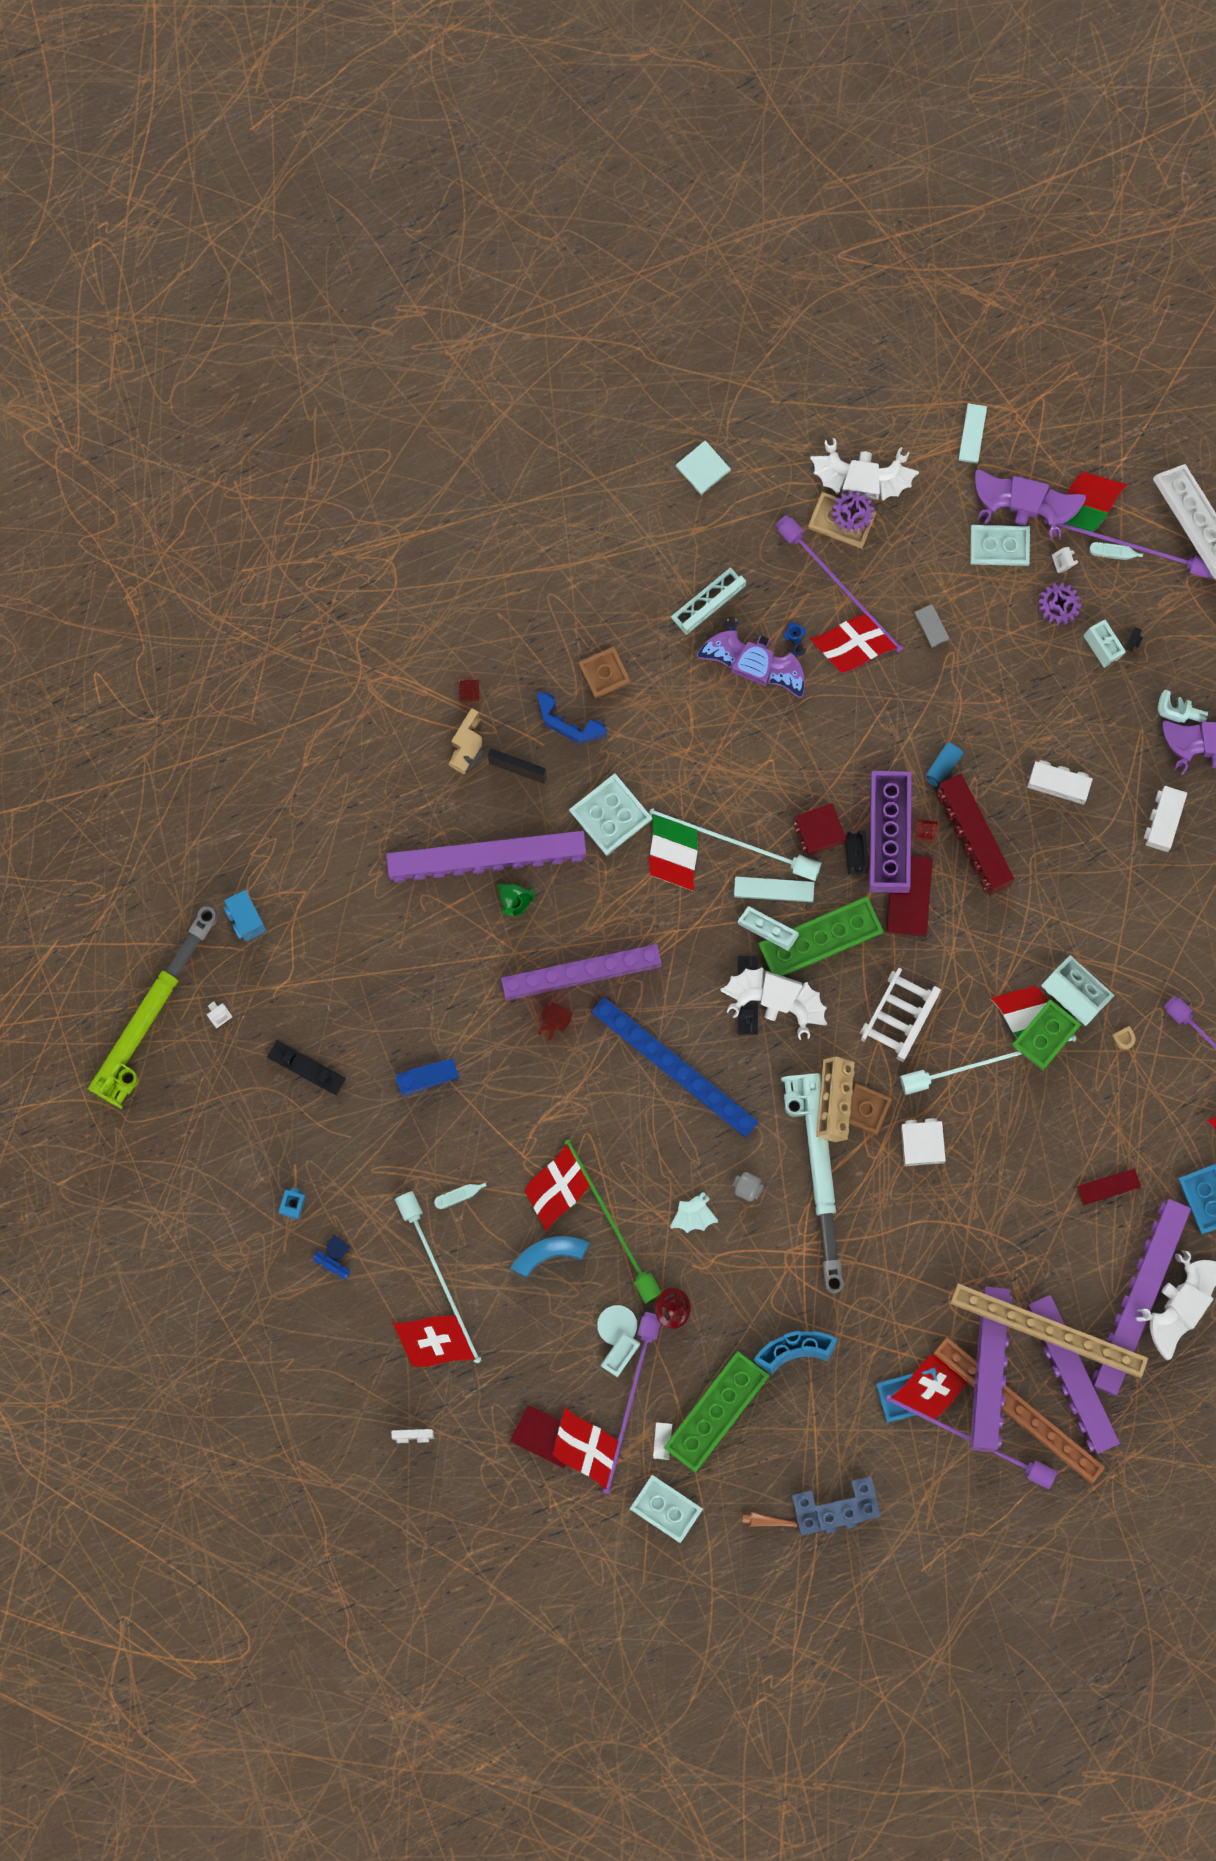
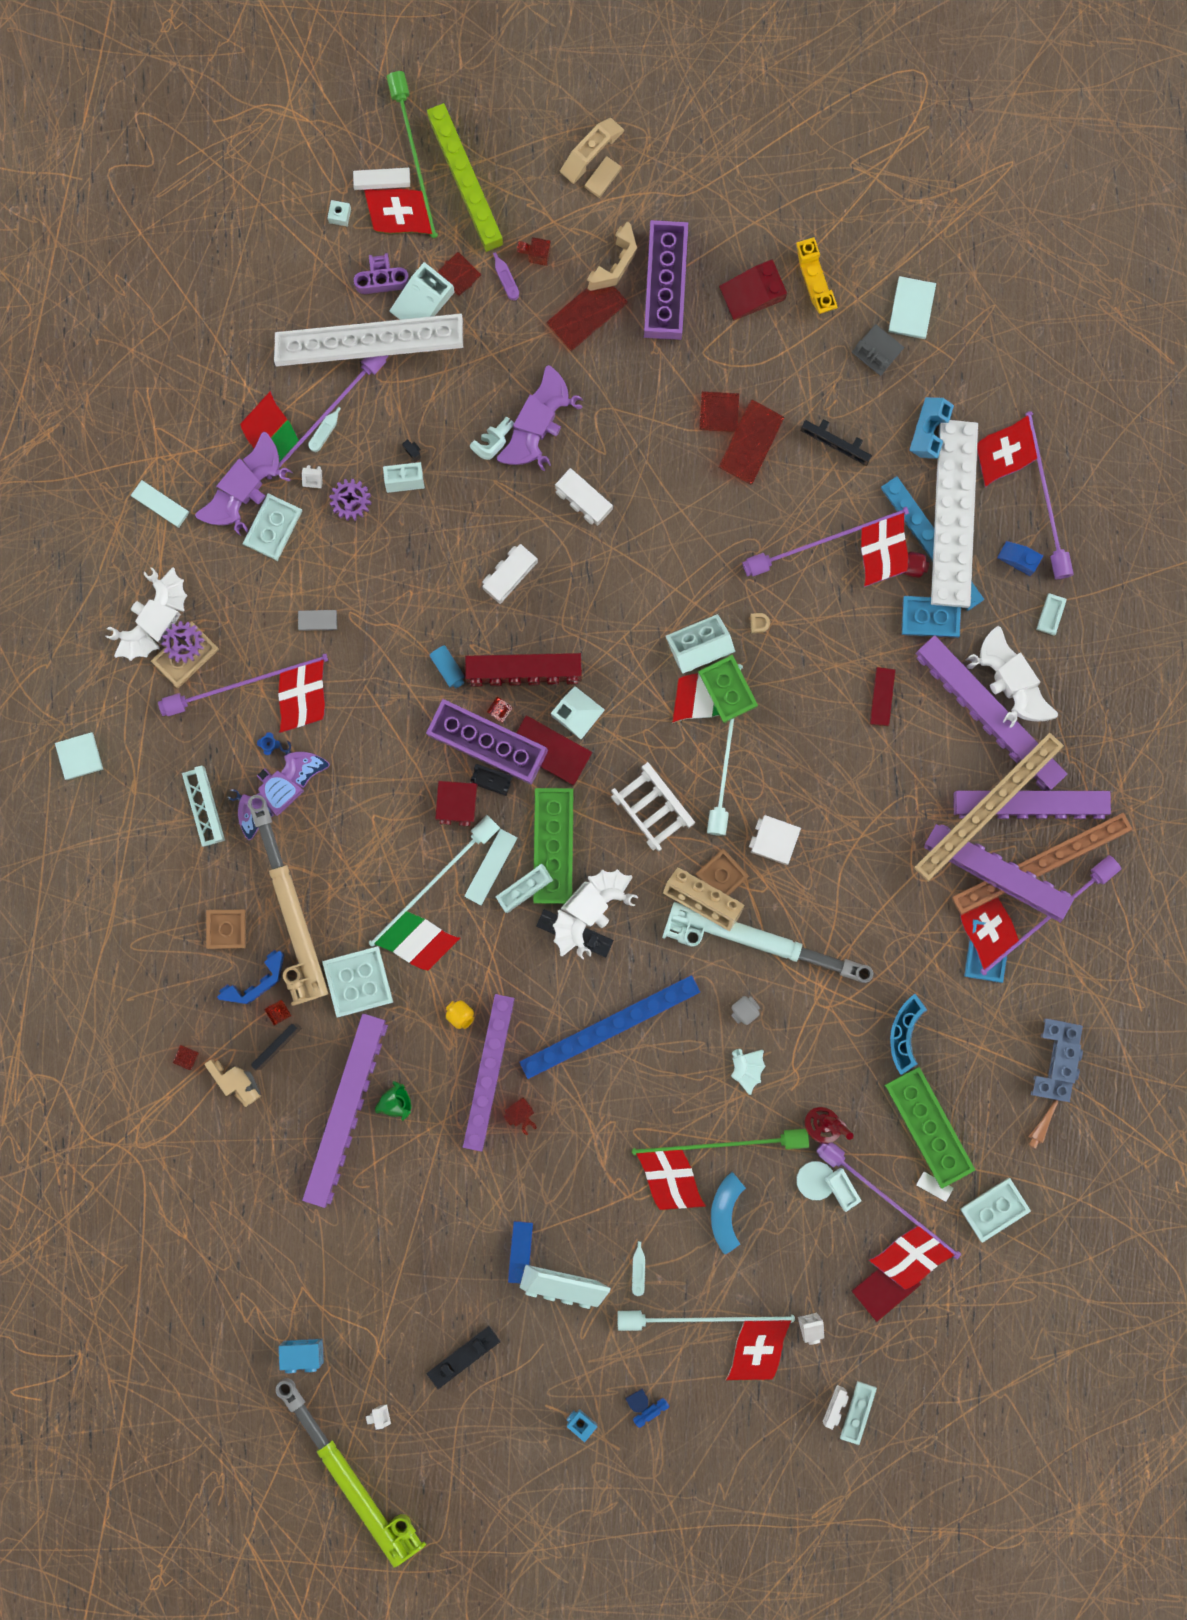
camera: 70 degrees left, 5 degrees up
(413, 1127) = (563, 1286): none -> light aqua slope
(416, 1461) = (858, 1413): none -> light aqua tile
(476, 1380) = (811, 1328): none -> white slope
(549, 754) = (277, 1012): none -> clear red plate
(592, 769) = (309, 979): none -> tan piece
(622, 921) = (459, 1014): none -> yellow head
(957, 903) = (577, 712): none -> light aqua slope

